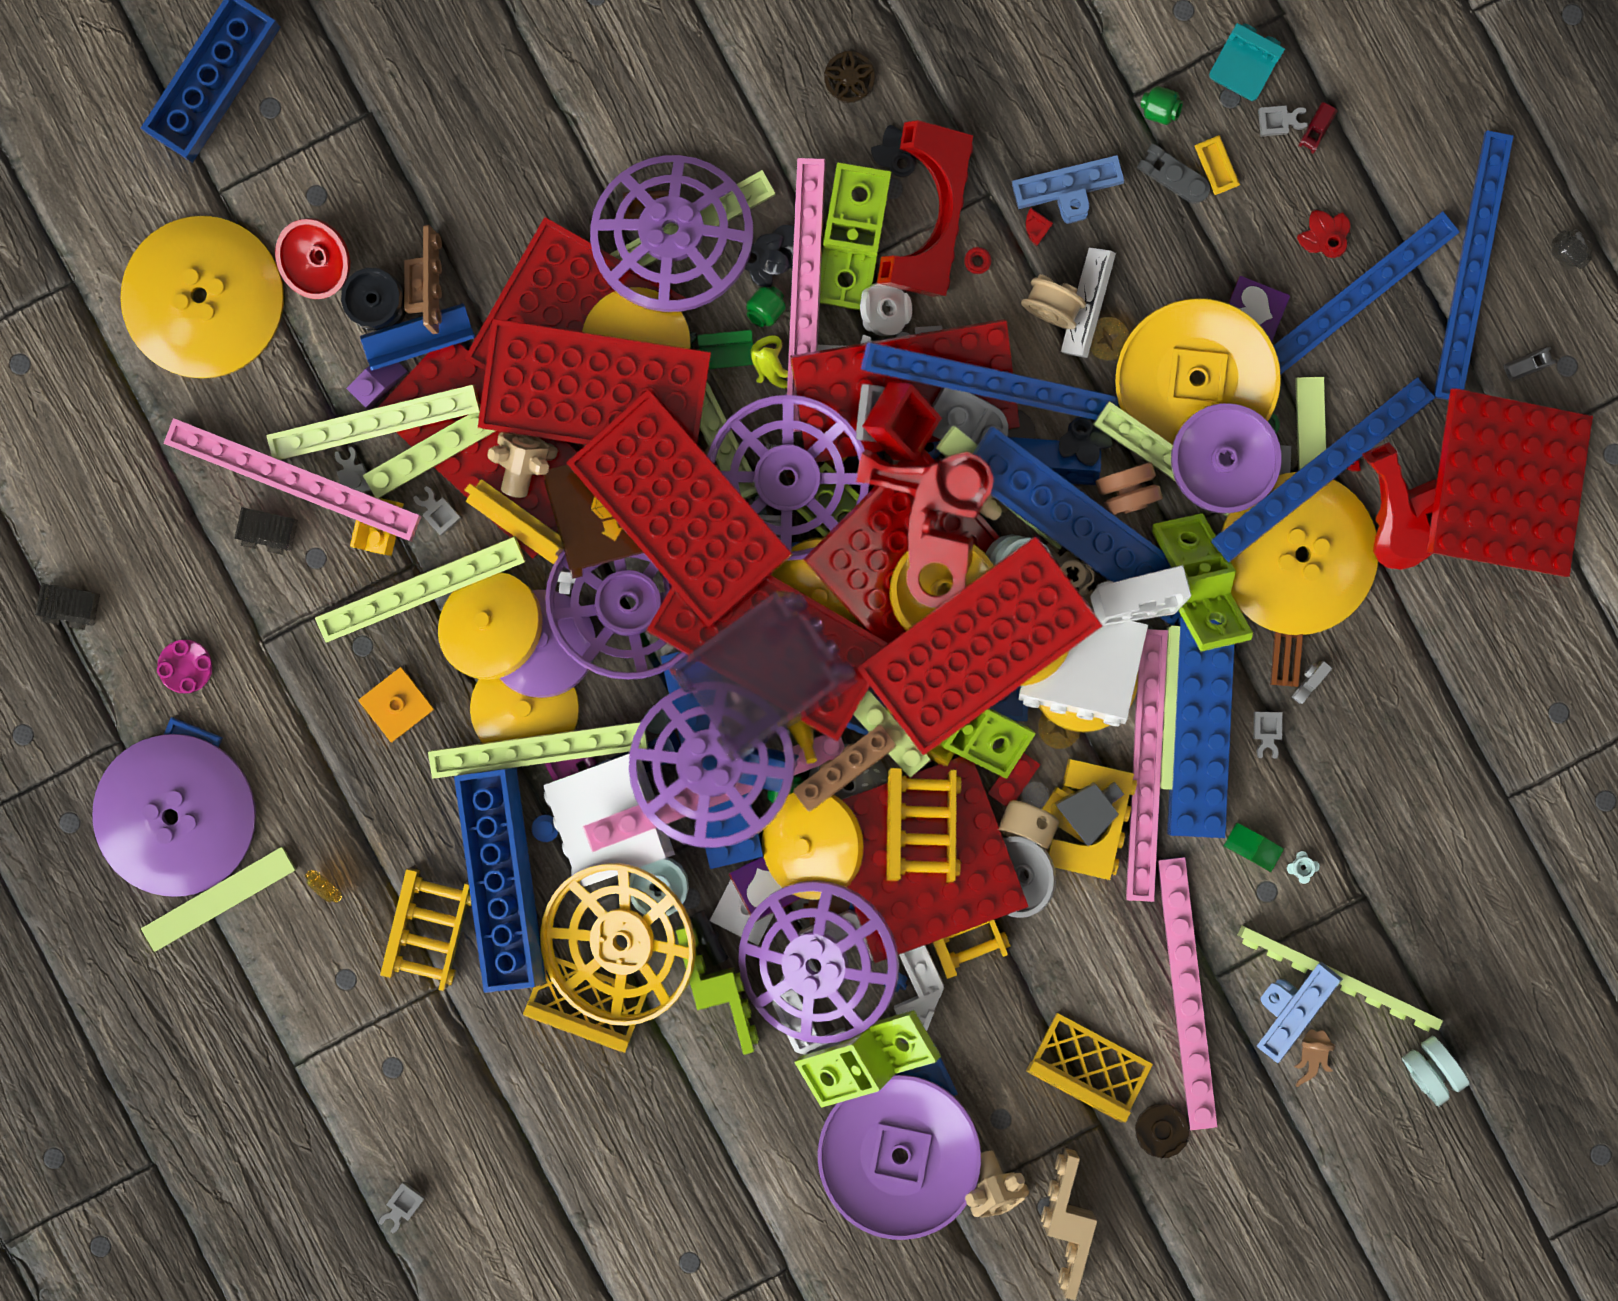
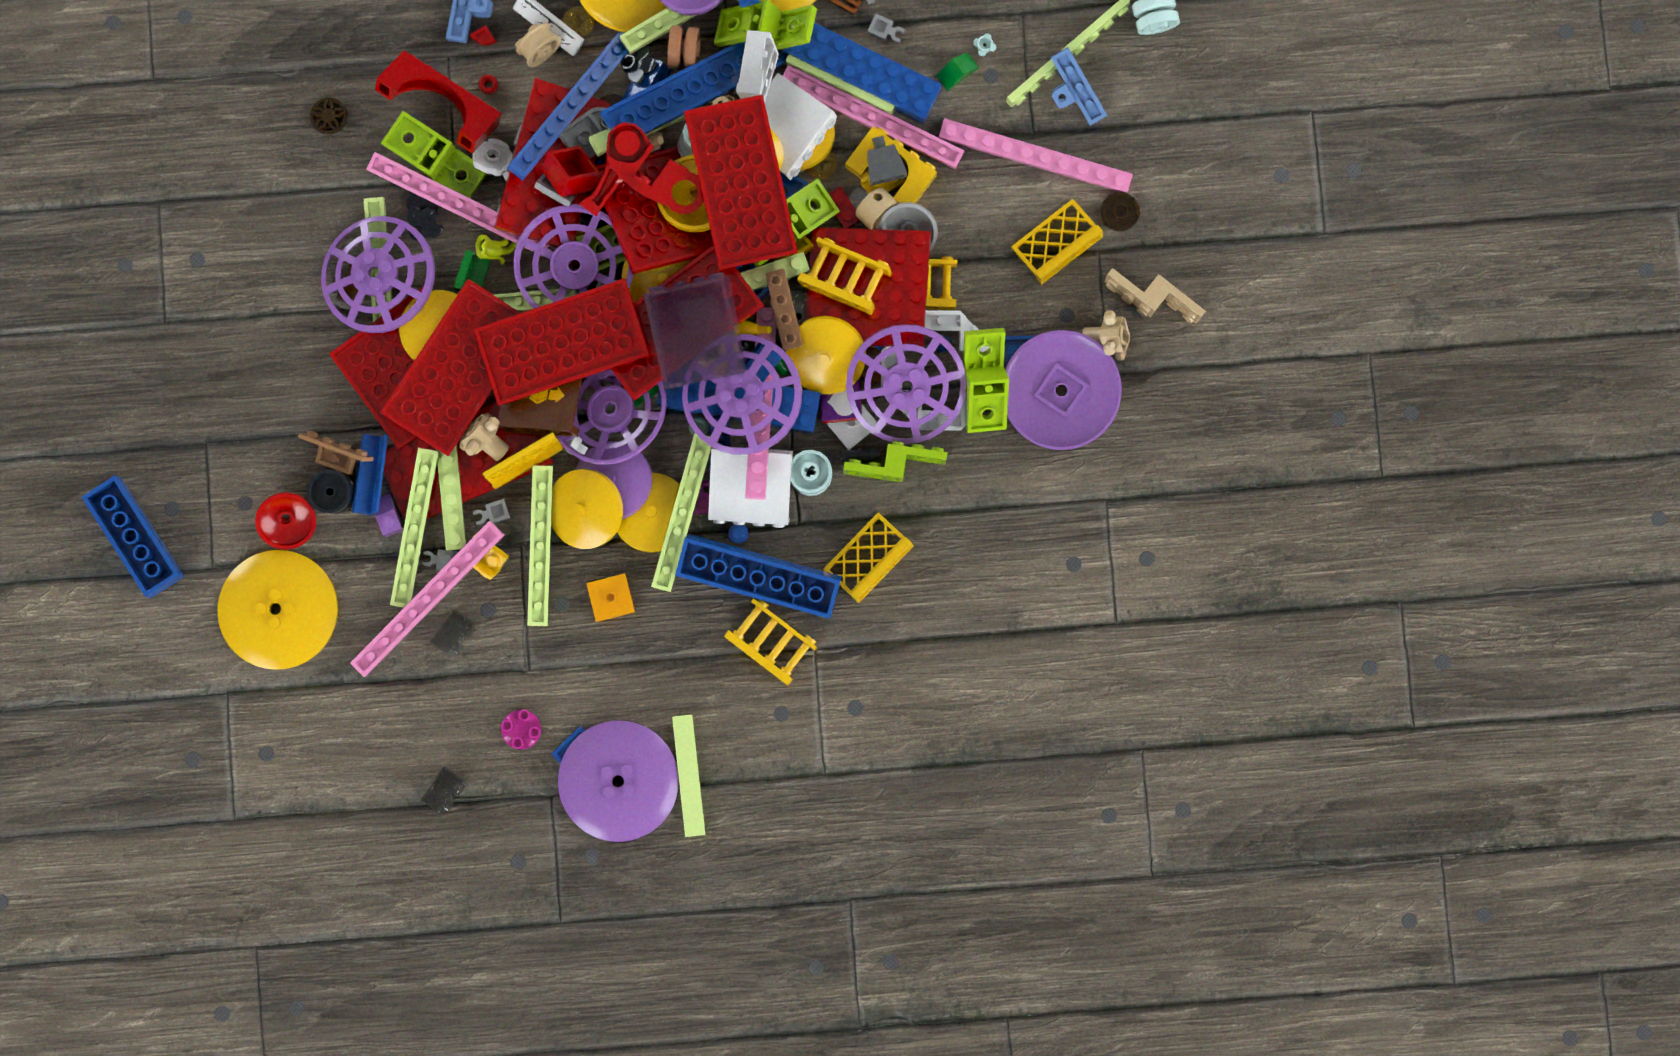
camera: 65 degrees left, 5 degrees down
(322, 887) = (711, 698): clear yellow gear -> none
(403, 1204) = (950, 738): light grey plate -> none
(607, 951) = (831, 524): yellow dish -> none
(765, 306) = (455, 235): green head -> none
(890, 153) = (391, 109): black plate -> none
(1314, 1050) = (1110, 89): medium nougat piece -> none

